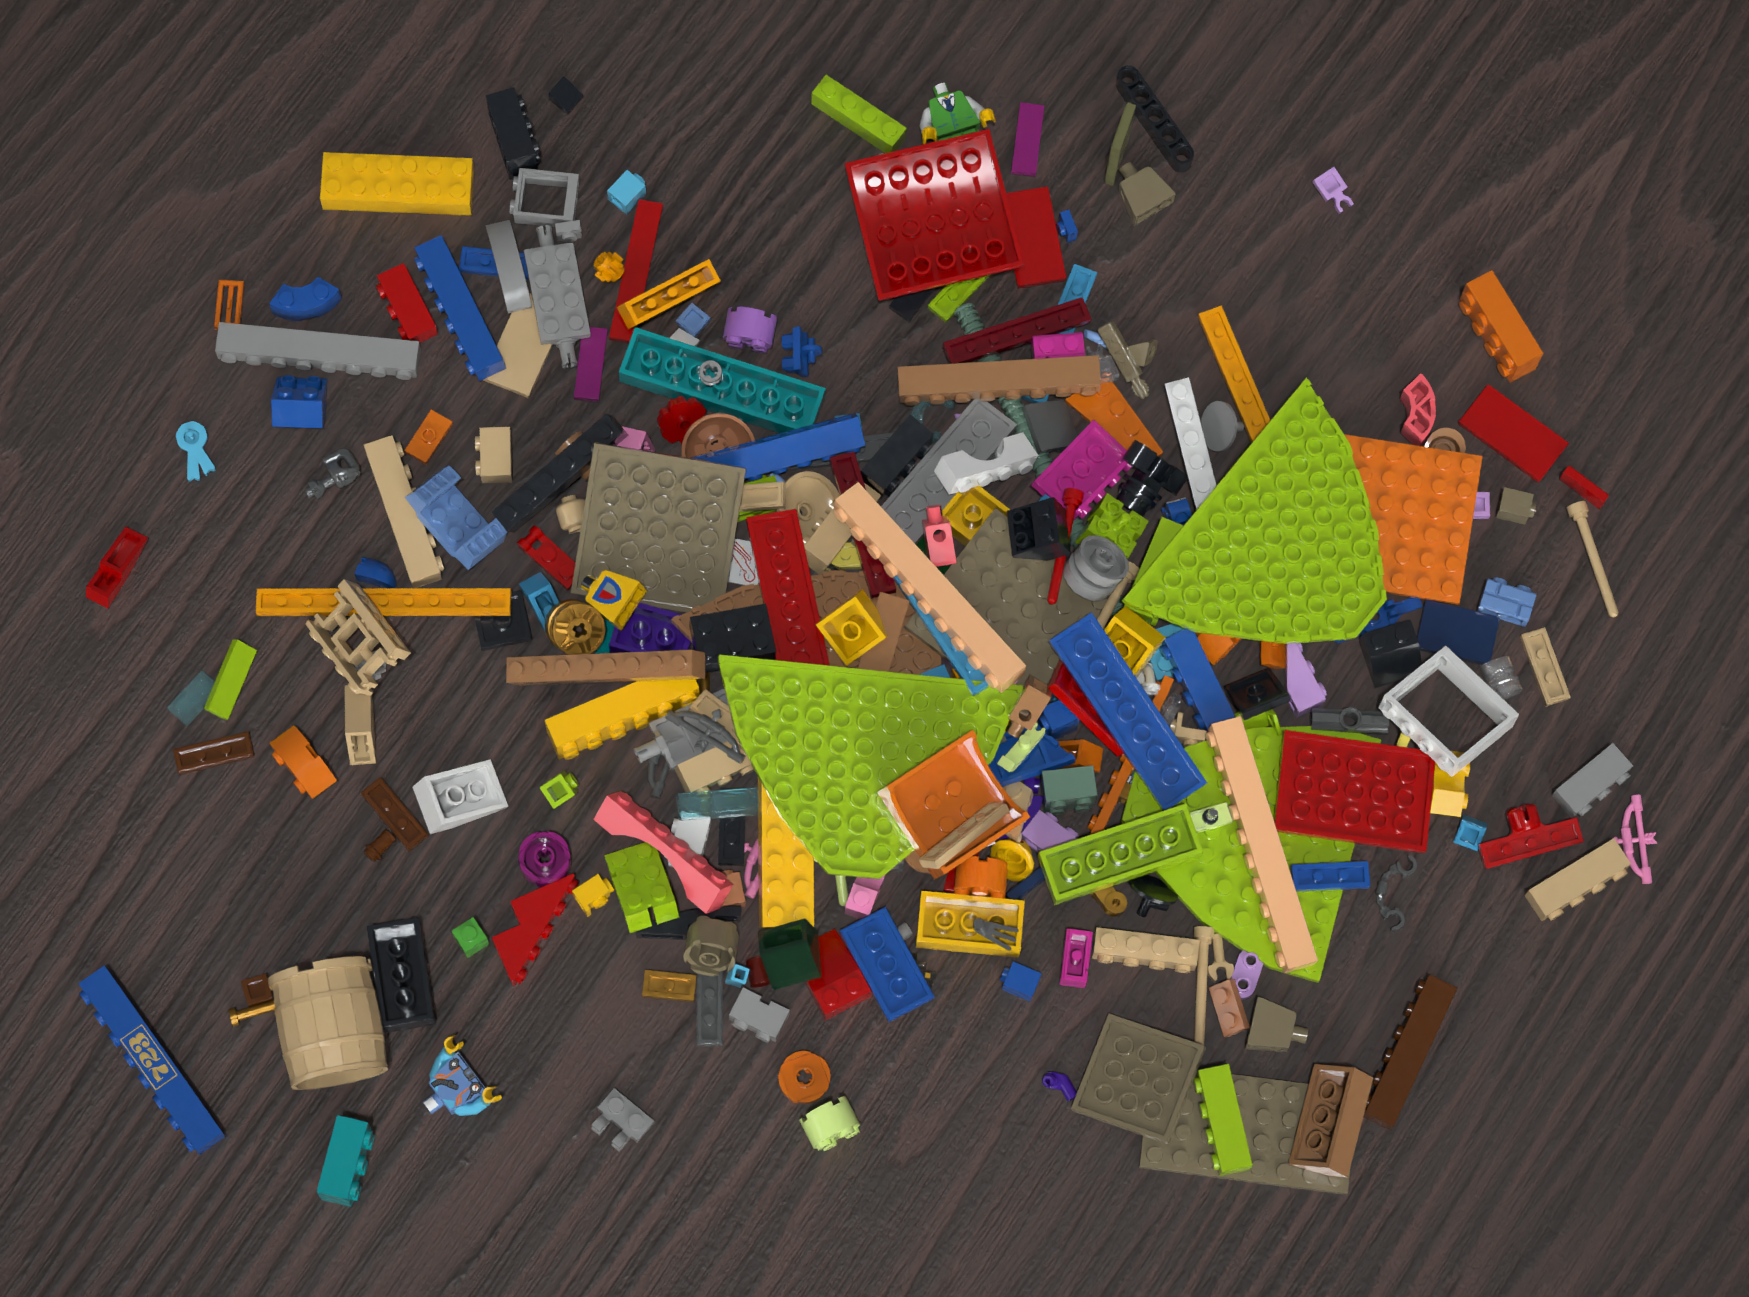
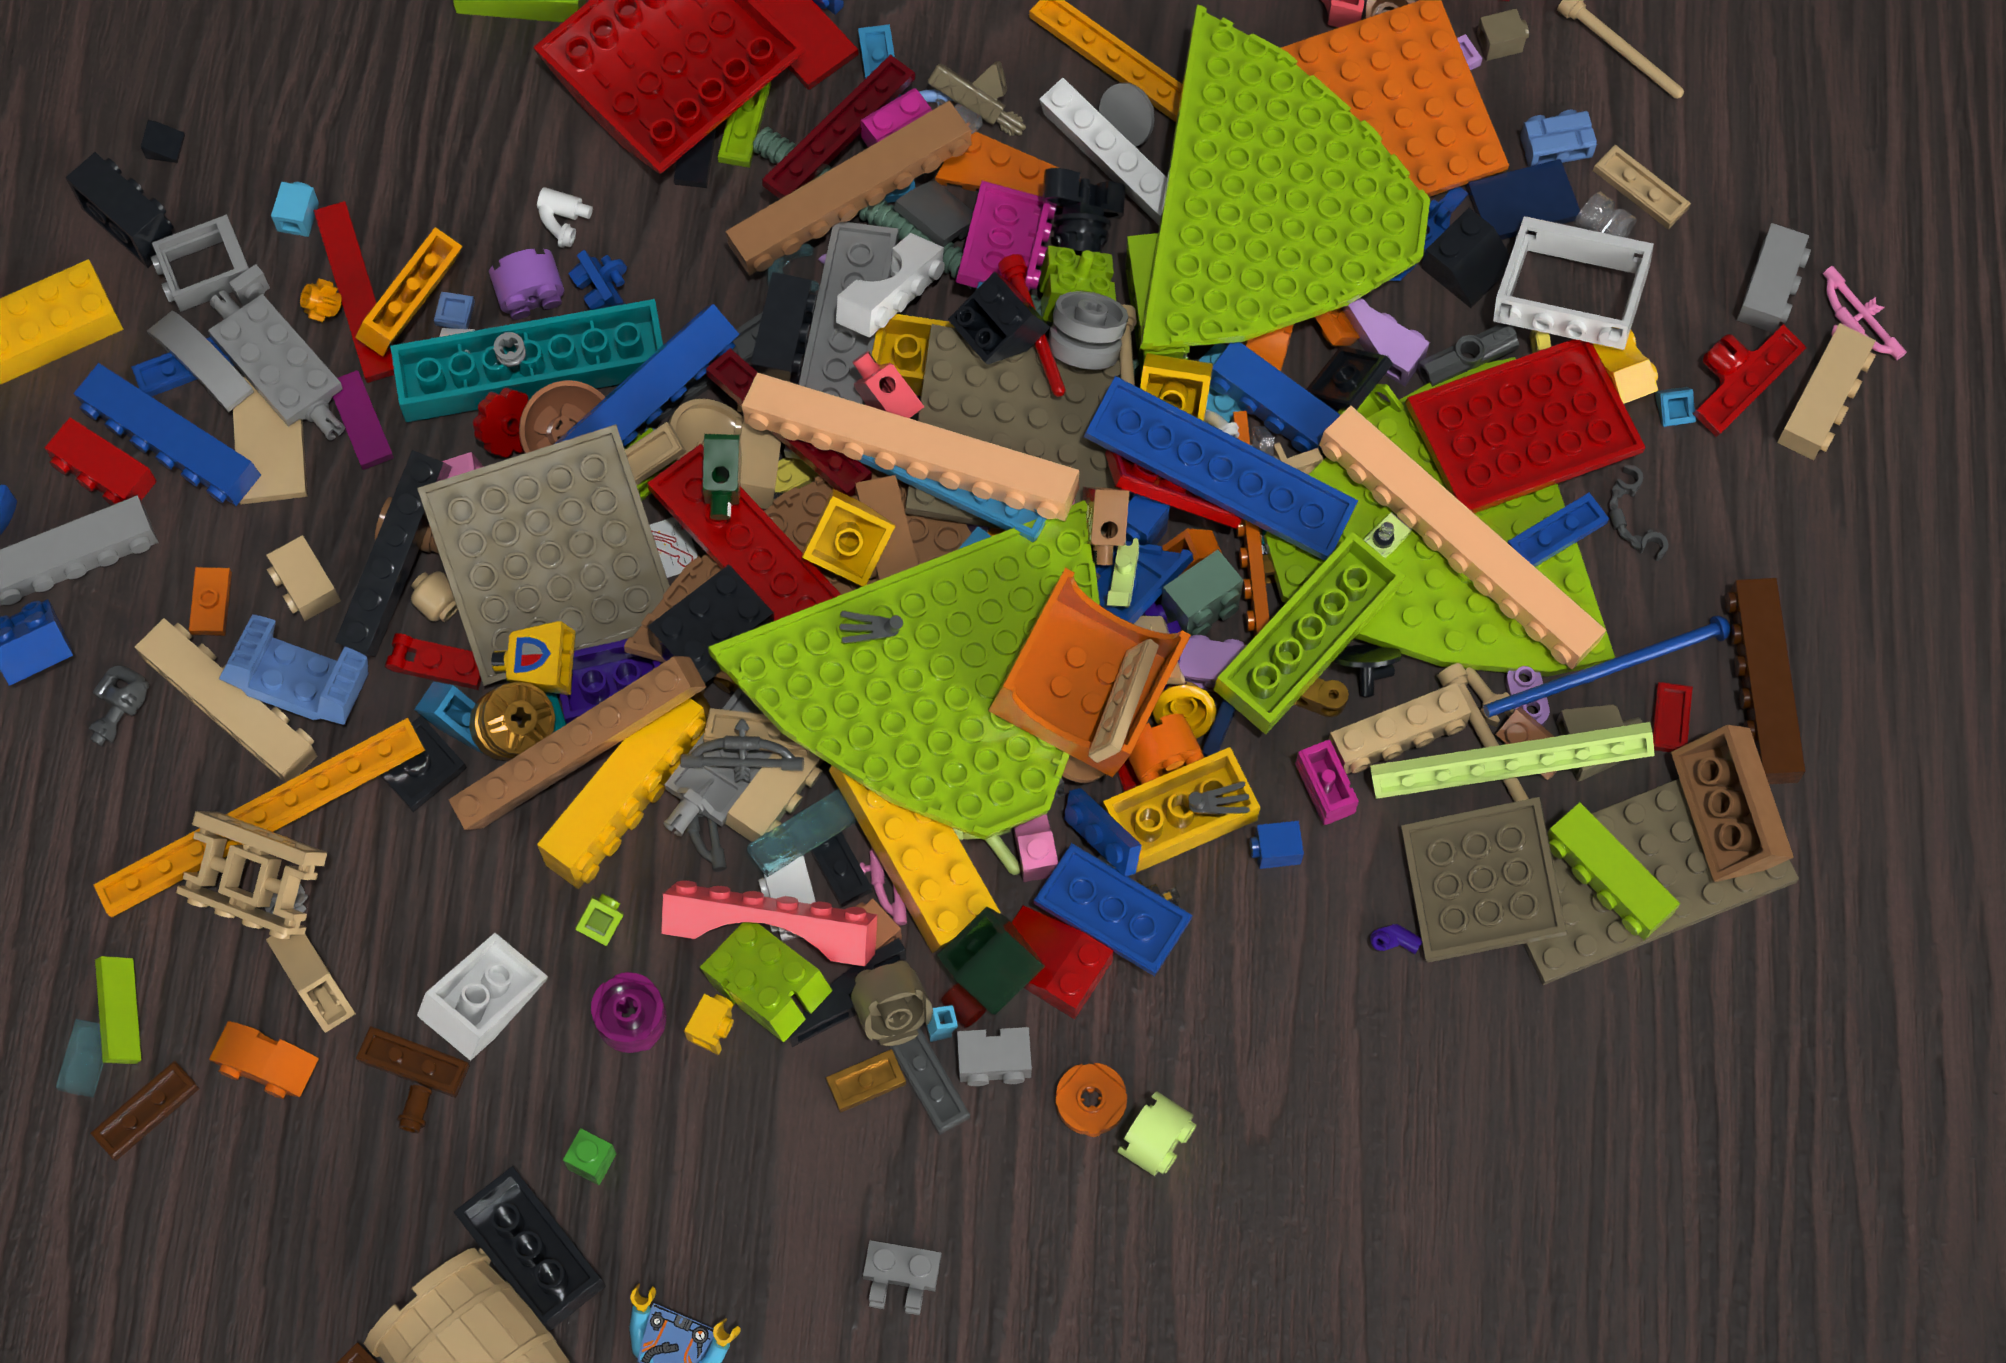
camera: 25 degrees left, 5 degrees down
(375, 573) = (230, 791): blue brick -> none
(535, 914) = (654, 1088): red slope -> none
(800, 531) = (721, 473): none -> dark green torso
(805, 283) = (565, 205): none -> white plant
(836, 701) = (880, 627): none -> dark grey piece
(909, 910) = (1102, 832): none -> blue plate
(1177, 511) = (1138, 222): blue leg -> none
(1204, 1011) = (1513, 760): none -> yellowish green plate
(1332, 1040) = (1671, 716): none -> red tile
(1401, 999) = (1718, 628): none -> blue bar

